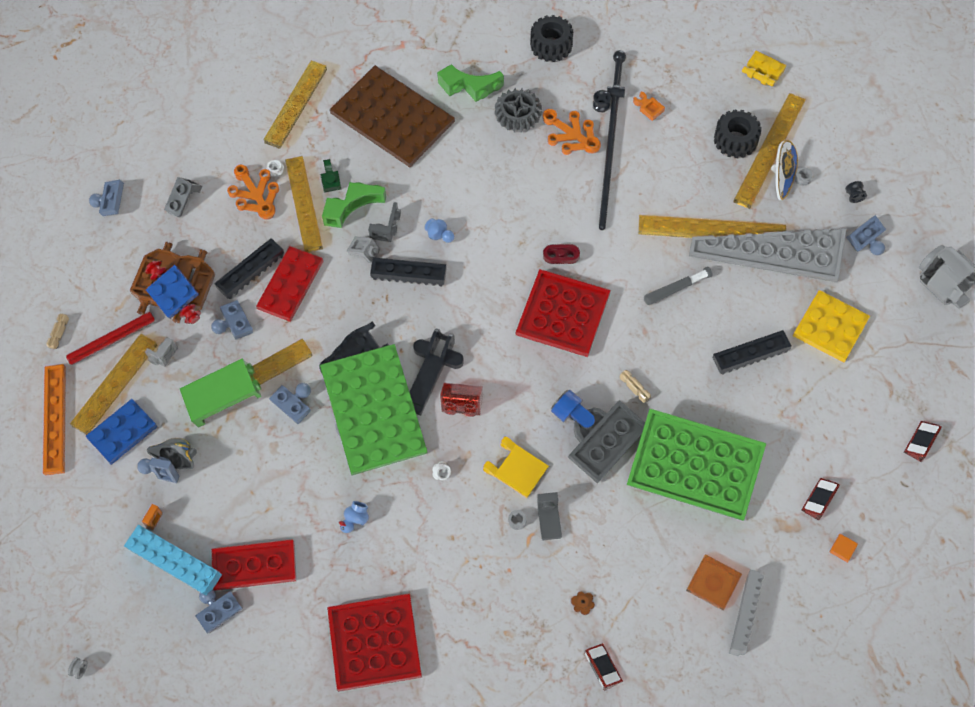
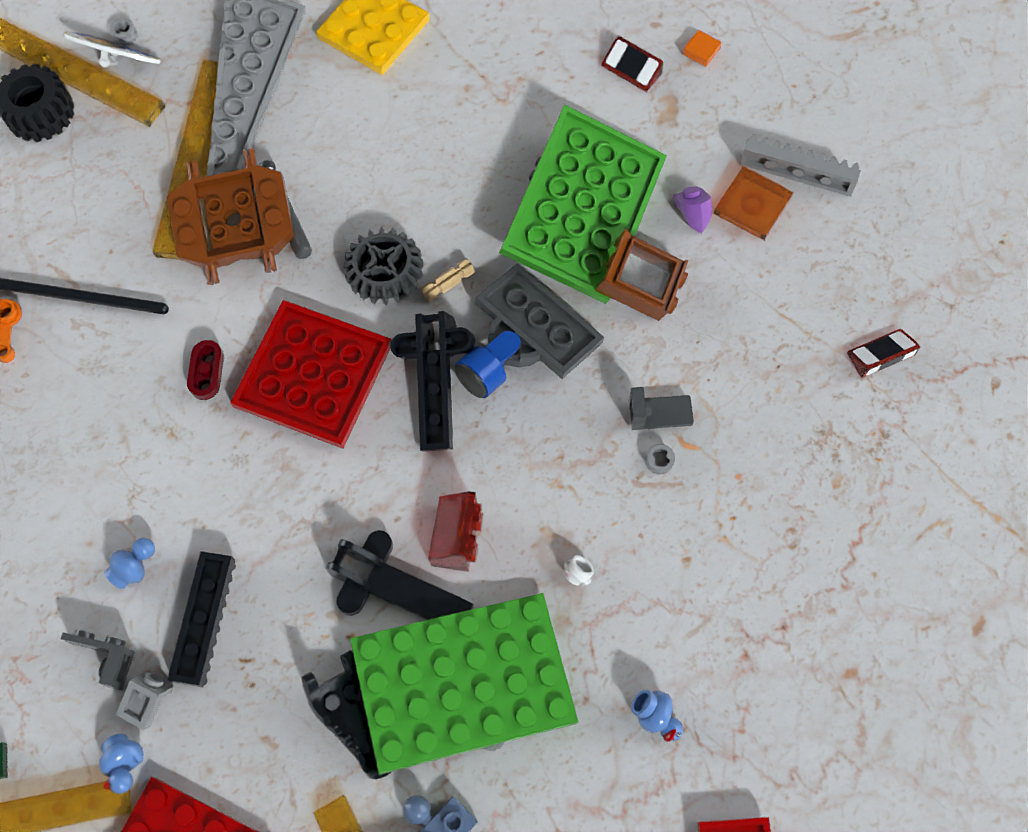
camera: 85 degrees left, 5 degrees up
(330, 240) = (118, 760): none -> medium blue animal
(357, 195) = (30, 708): bright green arch -> none
(374, 642) = (867, 684): red plate -> none
(519, 469) = (577, 452): yellow flag -> none
(584, 376) = (434, 374): none -> black piece
(584, 608) = (783, 381): dark orange plant -> none
(639, 339) = (380, 281): none -> dark grey gear
(644, 503) = (643, 277): none -> dark orange window
(660, 273) = (227, 195): none -> dark orange piece
(704, 539) = (695, 206): none -> medium lavender plate
(751, 352) = (407, 122): black gear -> none

